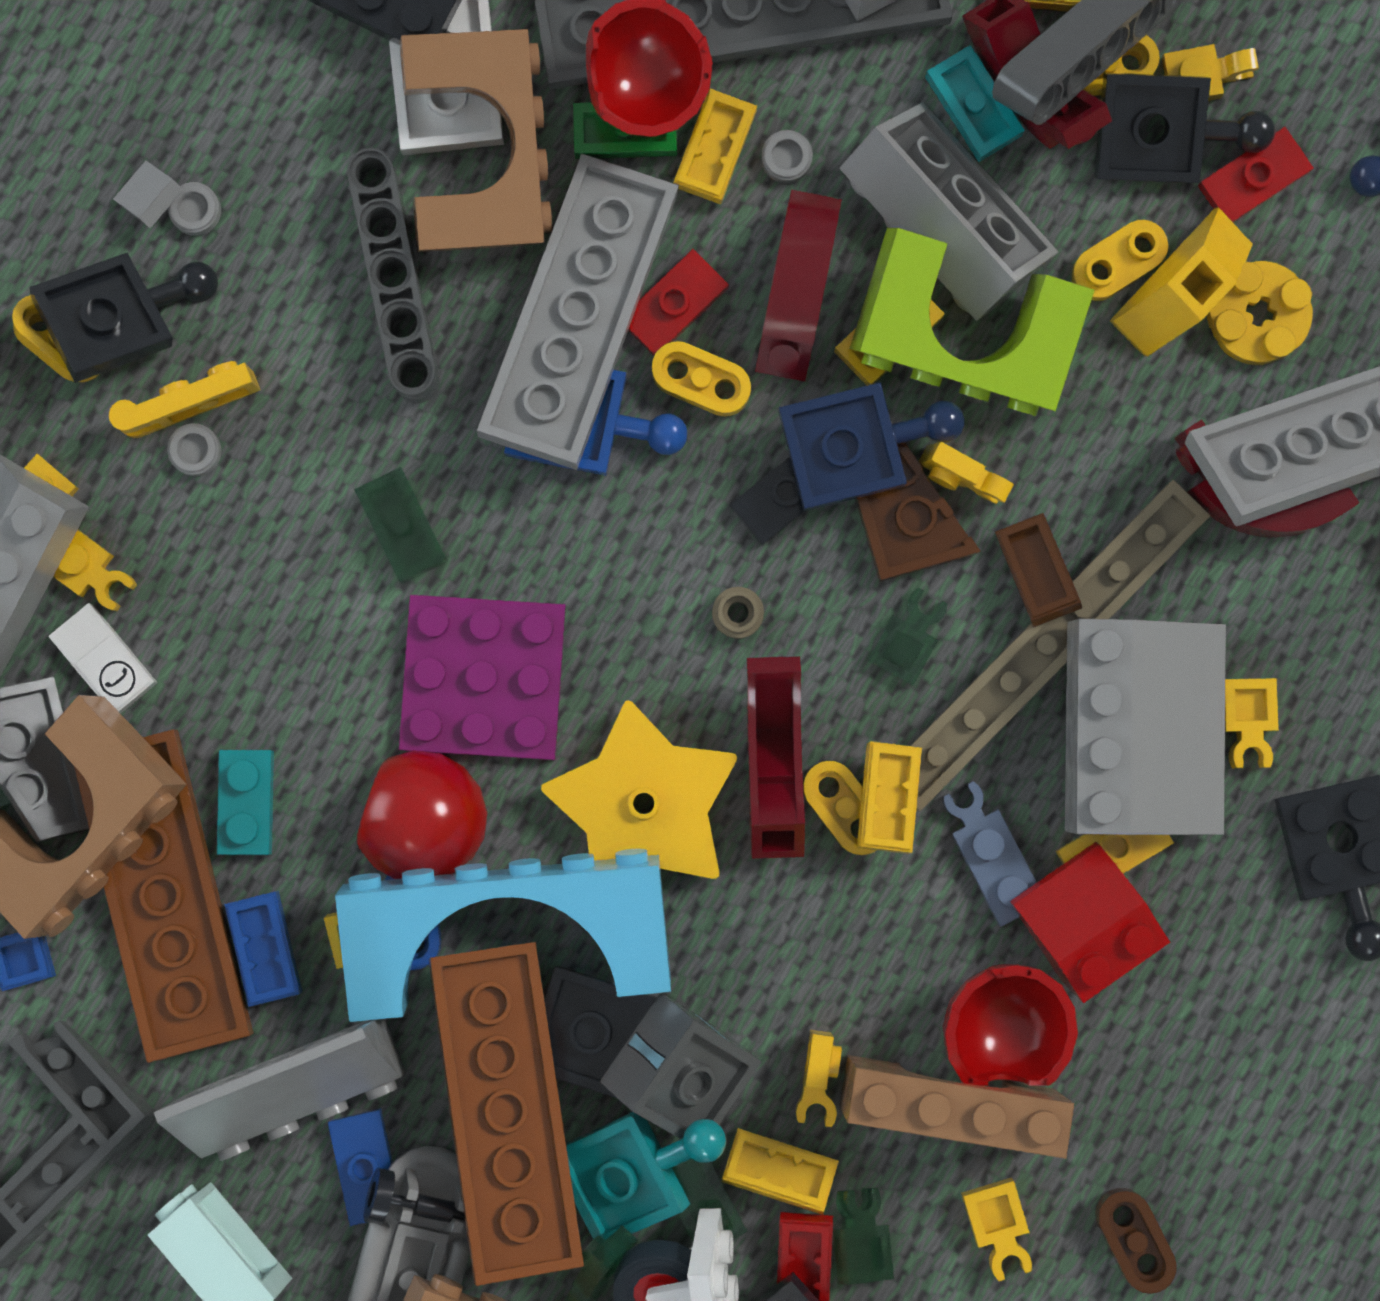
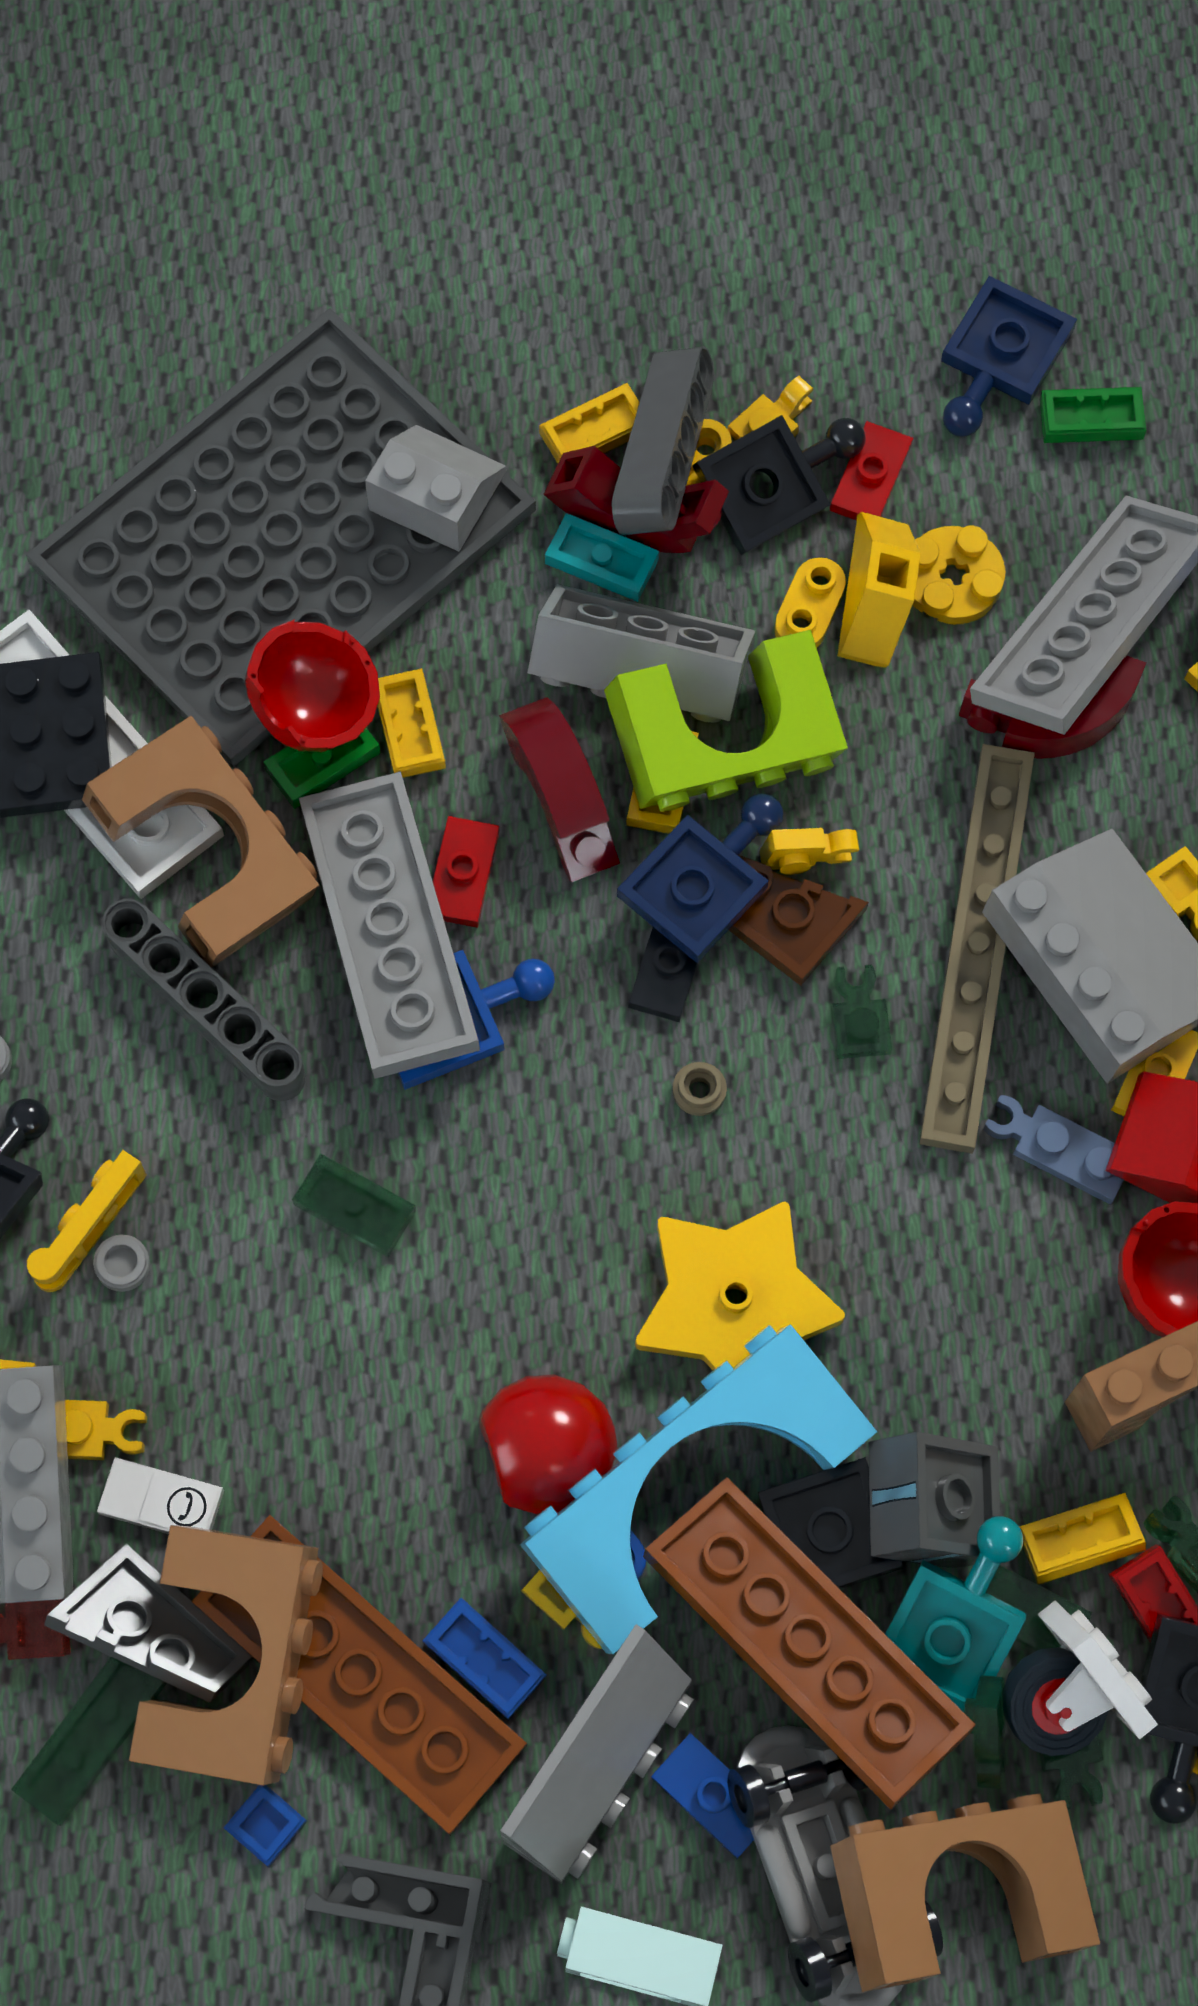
camera: 35 degrees left, 15 degrees down
(245, 802) = (377, 1541): teal plate -> none
(482, 677) = (516, 1289): magenta plate -> none
(703, 376) = (529, 912): yellow plate -> none
(775, 757) = (810, 1171): dark red arch -> none
(786, 156) = (474, 696): light grey tile -> none
(821, 1062) = (1049, 1421): yellow plate -> none
(840, 810) = (910, 1184): yellow plate -> none
(889, 797) = (942, 1149): yellow plate -> none
(1038, 570) = (927, 886): reddish brown tile -> none

